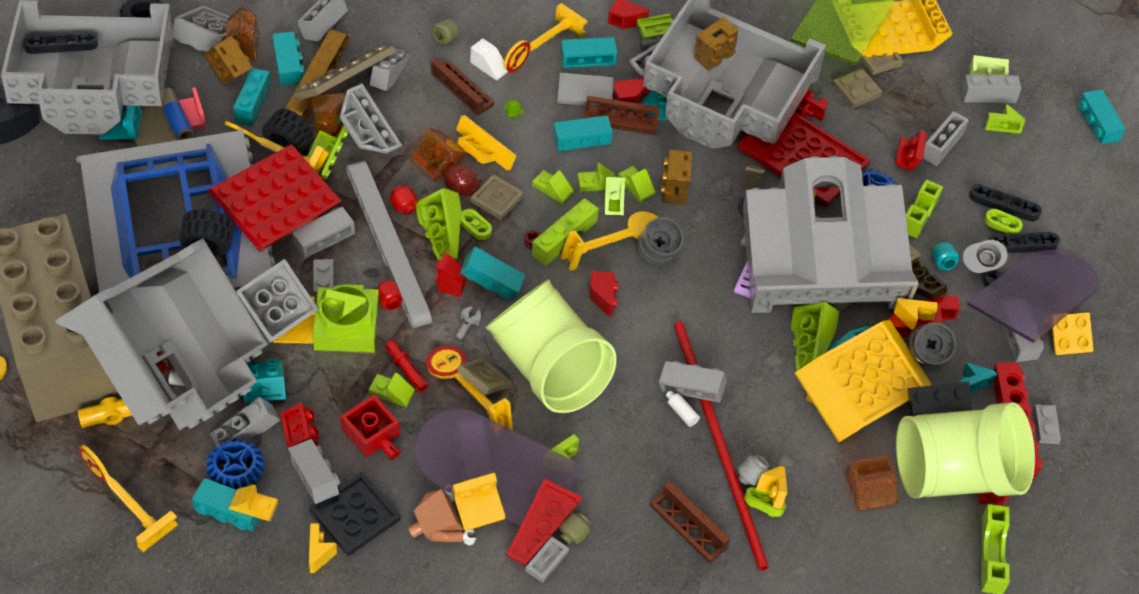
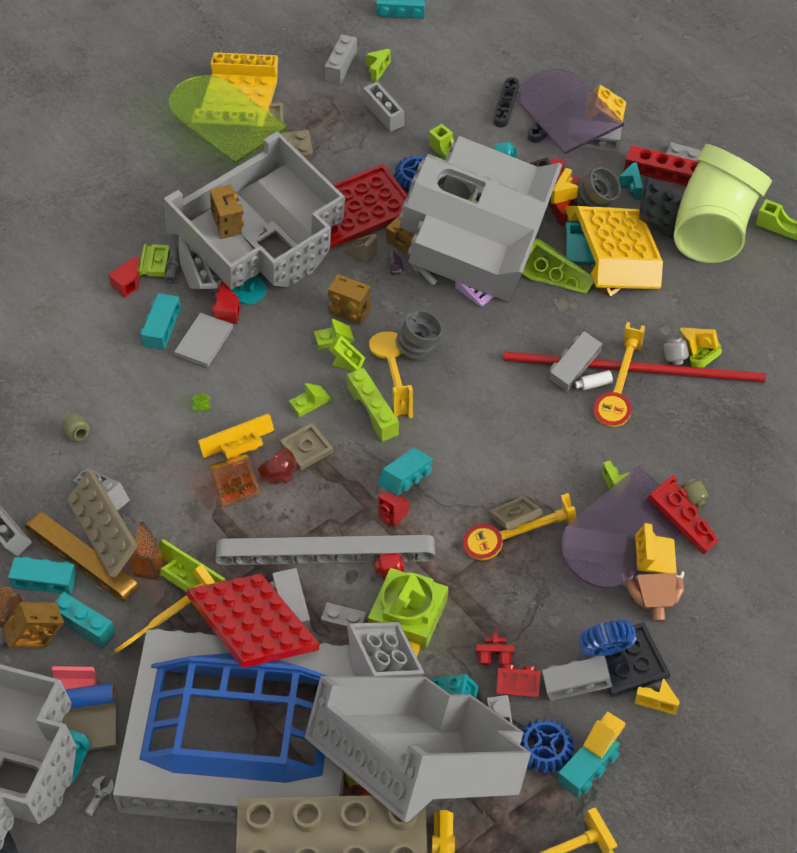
camera: 65 degrees left, 0 degrees up
(211, 226) = (304, 676): black tyre -> none
(288, 128) = (157, 593): black tyre -> none
(327, 399) = (484, 651): none -> red hips
(352, 475) = (607, 638): none -> blue gear
(366, 122) = (178, 521): light grey wedge -> none
(372, 428) = (543, 618): red brick -> none
(393, 390) = (498, 595): lime slope -> none
(402, 360) = (468, 576): red pin -> none
(403, 199) = (279, 522): red head -> none
(441, 220) = (320, 499): lime wedge -> none
(461, 86) = (152, 436): copper fence -> none
(468, 321) = (433, 512): light grey bar -> none
(477, 224) = (331, 472): lime plate -> none
(487, 59) = (130, 403): white slope -> none
(530, 235) = (366, 439): dark red bush -> none
(547, 559) = (718, 523): light grey plate -> none
(554, 349) = (506, 446): yellowish green cylinder -> none
(567, 20) = (114, 323): yellow piece -> none
(582, 133) = (260, 356): teal brick -> none
(594, 180) = (317, 365): lime slope -> none
(602, 291) = (451, 397): red slope -> none
(622, 118) = (251, 321): copper fence -> none
(657, 433) = (612, 407): none -> yellow piece
(697, 521) = (705, 408): copper fence -> none
(872, 482) = (710, 277): clear orange slope -> none
(910, 151) = (386, 132): red bracket -> none
(985, 256) = (518, 126): light grey piece -> none
(988, 66) = (318, 53): yellowish green hinge -> none
(1003, 222) = (482, 105): lime plate -> none
(1006, 200) = (474, 86): black beam -> none

